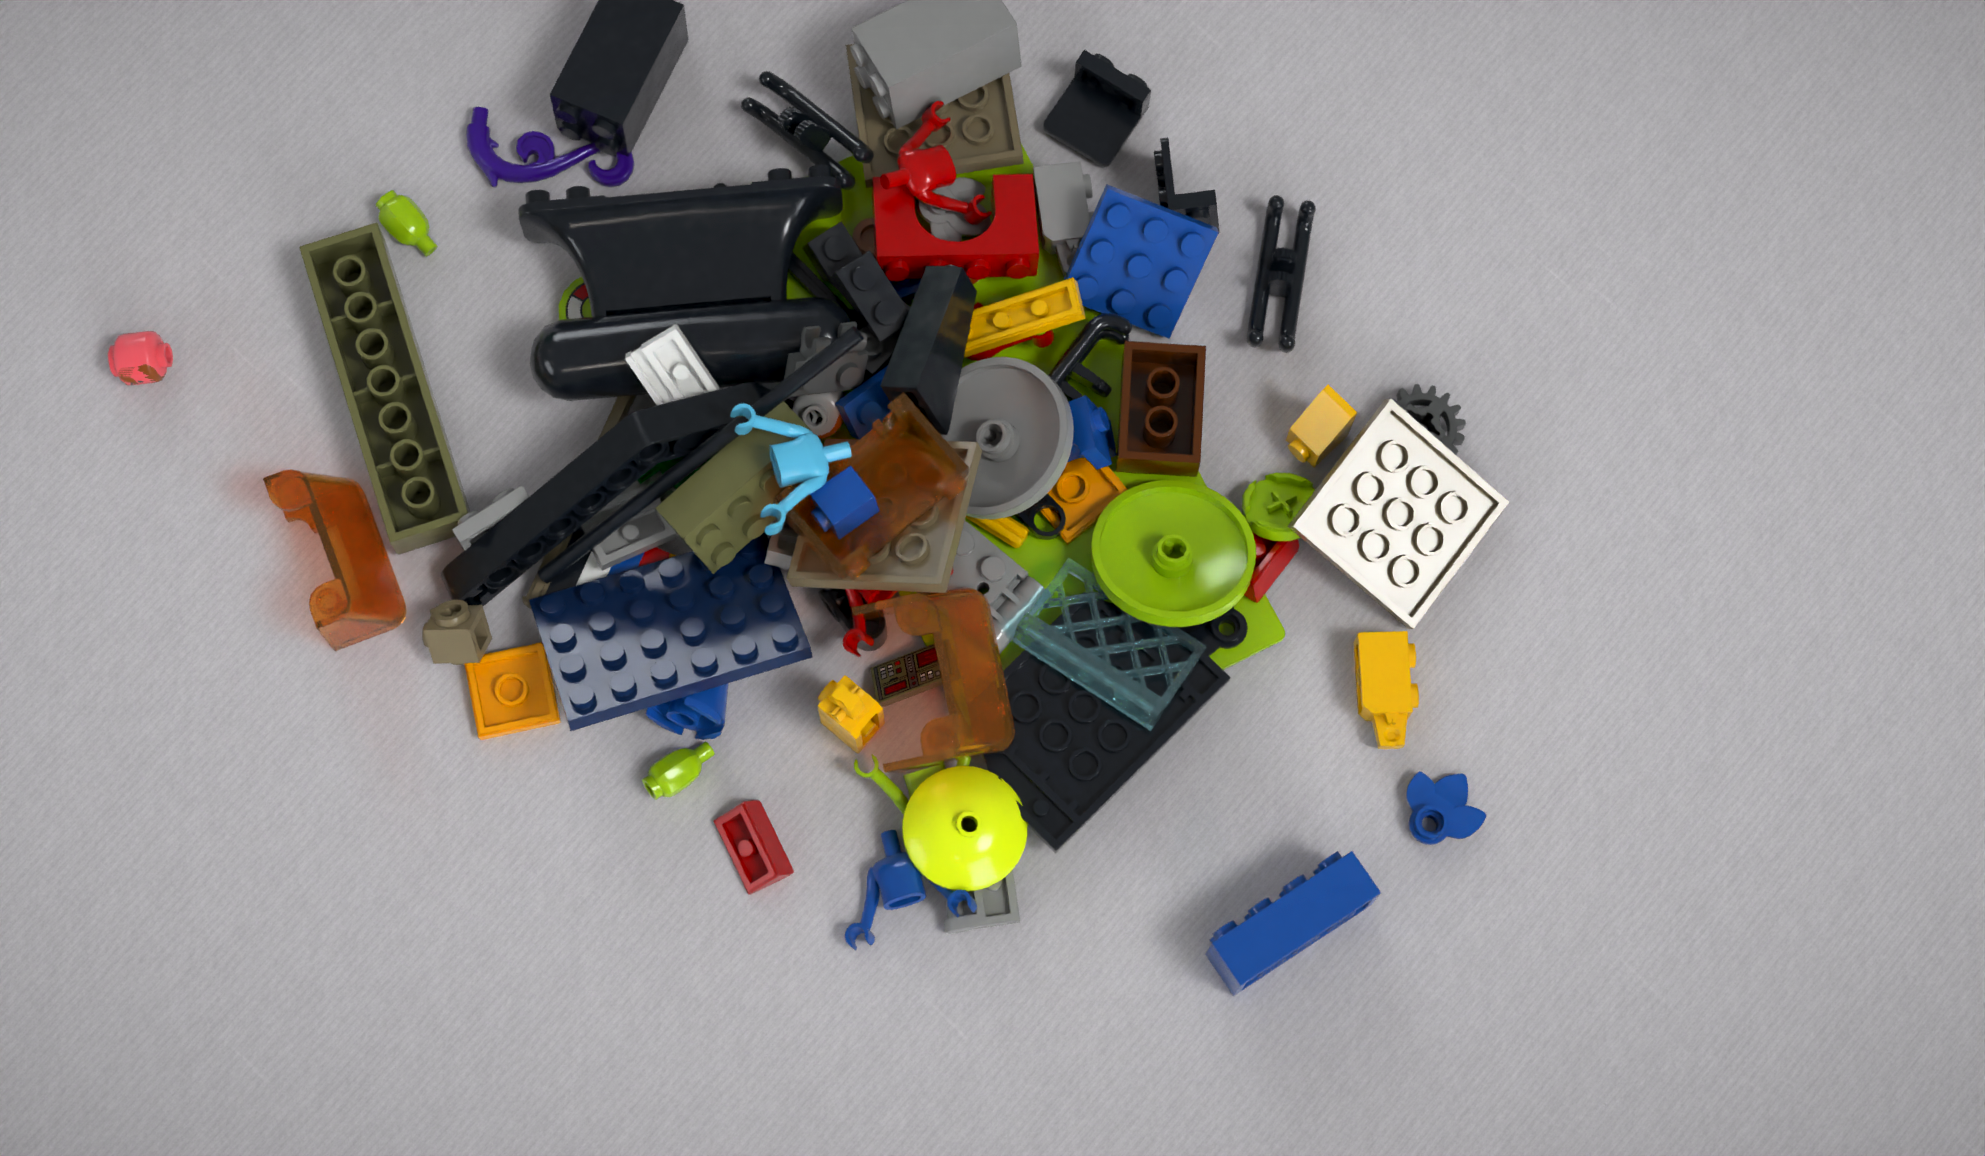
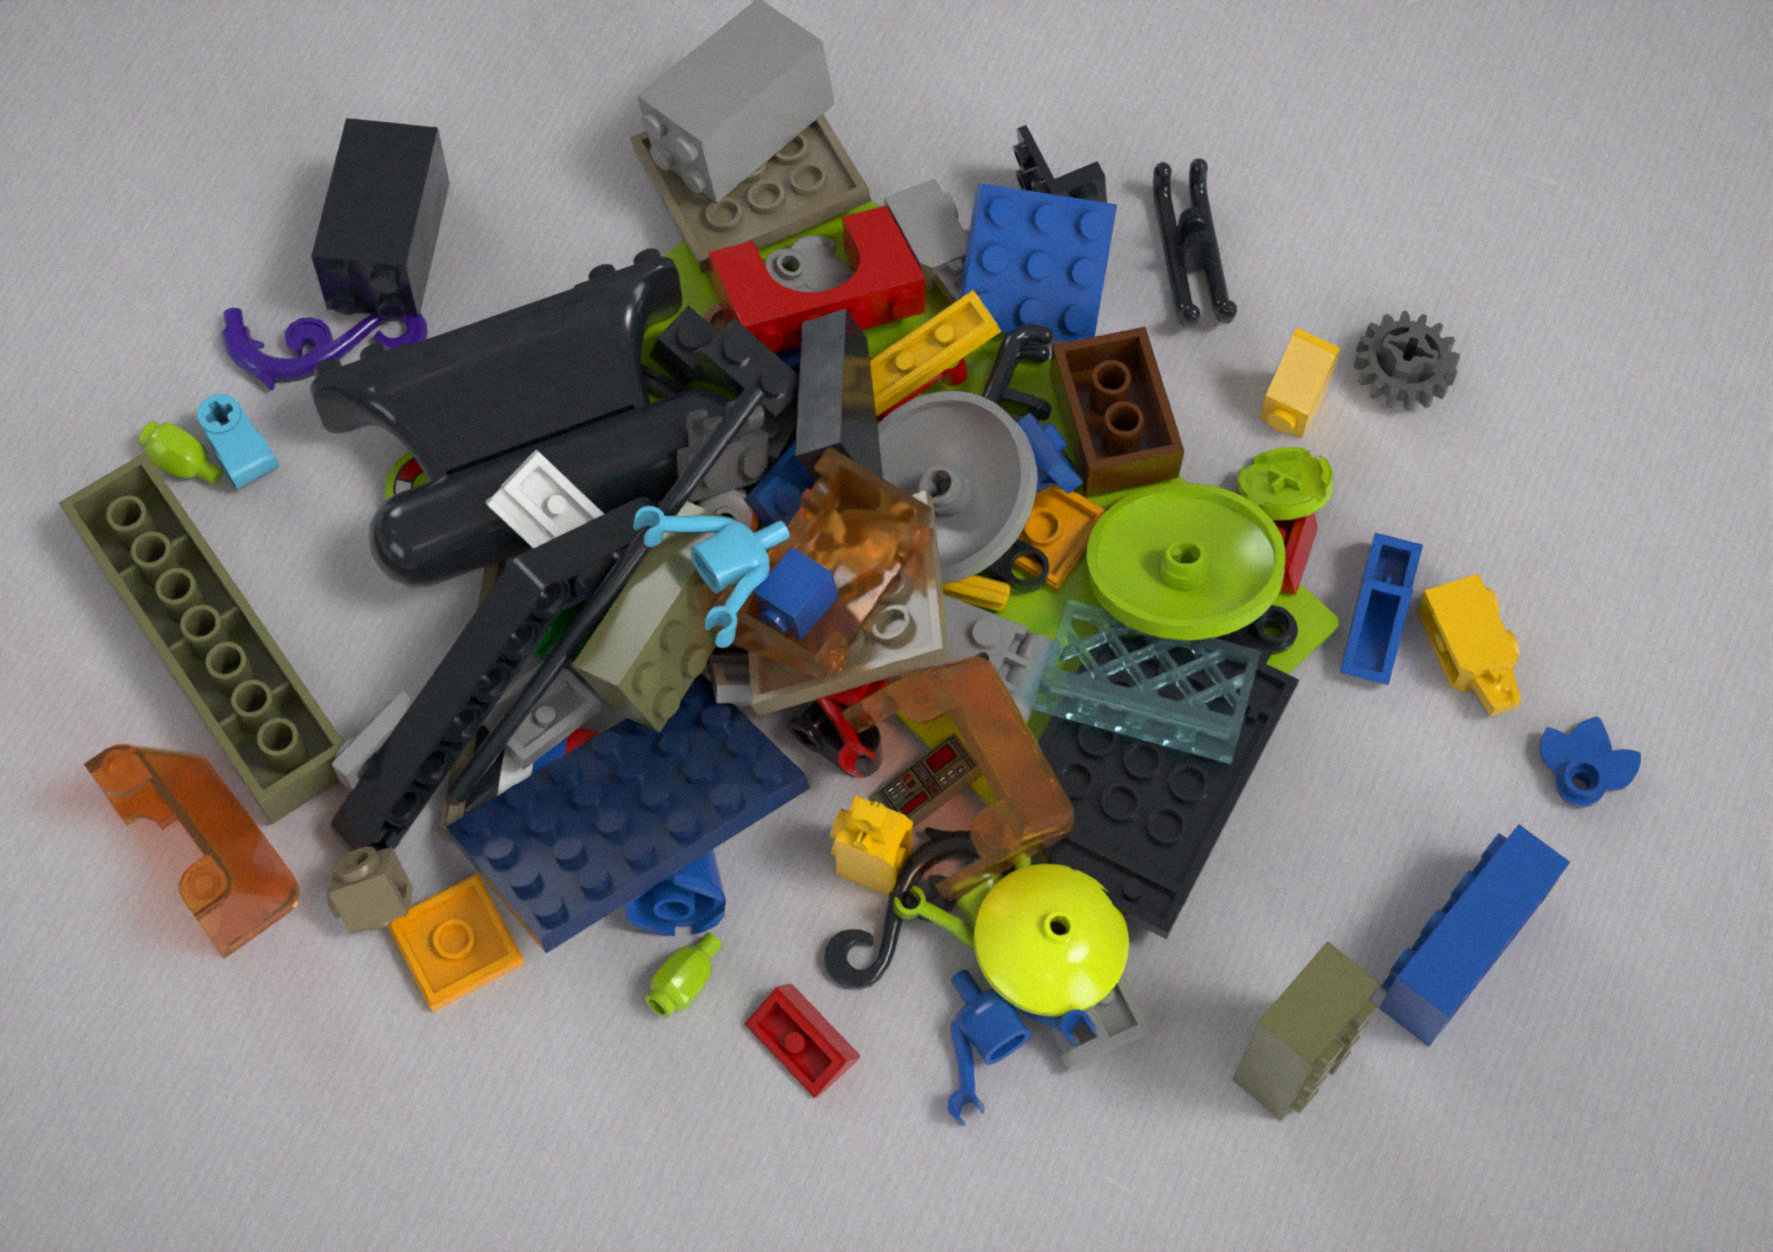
camera: 15 degrees left, 10 degrees down
(453, 231) = (237, 444): none -> medium azure piece
(807, 128) = (612, 227): black piece -> none
(907, 727) = (941, 847): none -> black plant
(931, 169) = (774, 225): red piece -> none
(1098, 109) = (932, 128): black bracket -> none
(1125, 964) = (1307, 1032): none -> olive brick
(1321, 635) = (1381, 608): none -> blue slope
(1398, 513) = (1420, 450): plate -> none

